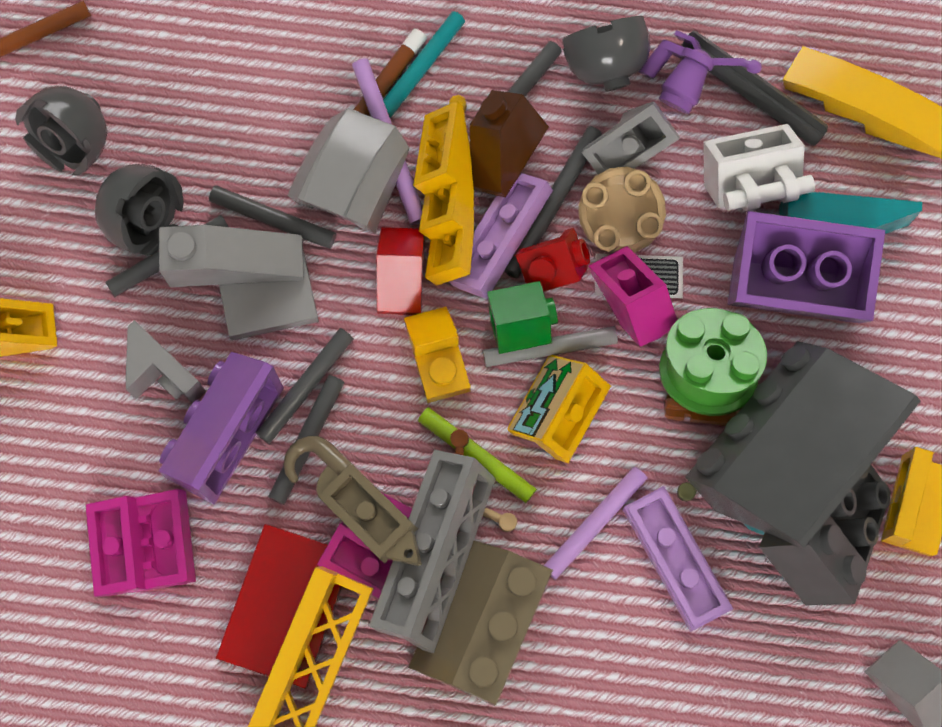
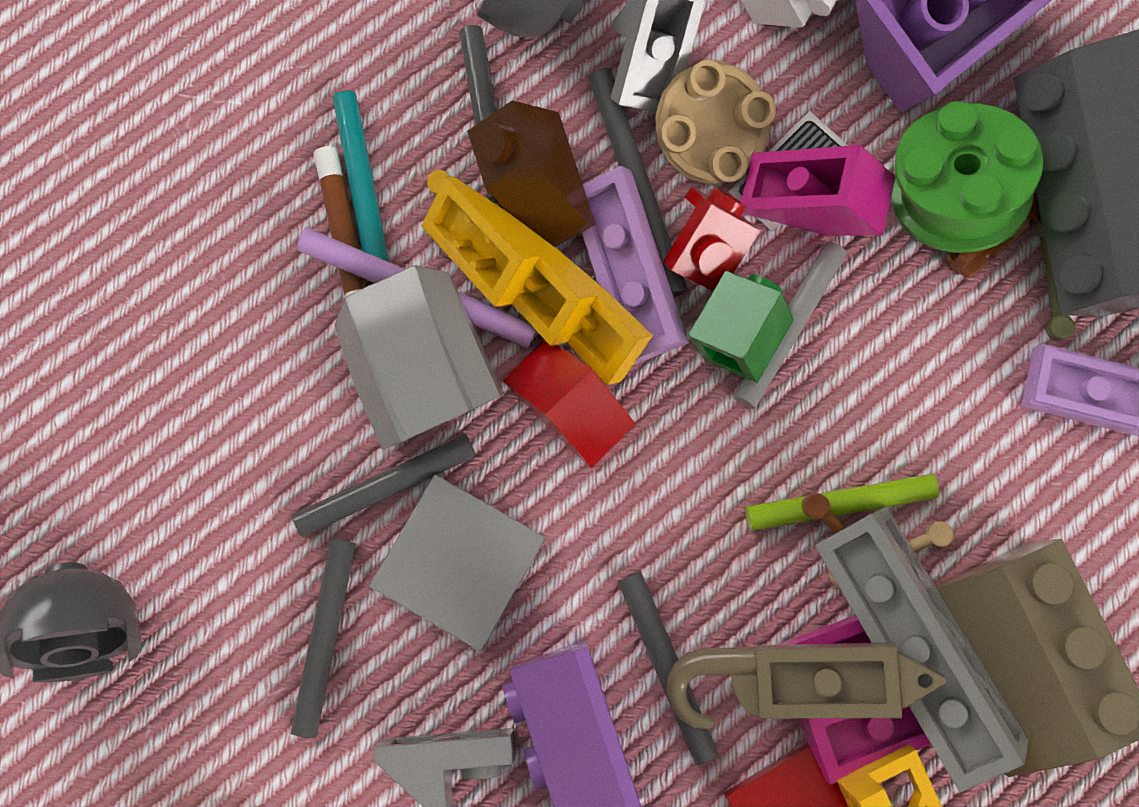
camera: 45 degrees left, 5 degrees up
(135, 205) = (240, 627): dark grey cylinder -> none
(228, 256) = (392, 575): light grey slope -> none
(304, 386) = (606, 618): dark grey piece -> none
(437, 354) = (695, 445): yellow slope -> none
(560, 406) = (864, 373): panel -> none
(595, 522) = (1017, 447): lavender bar -> none

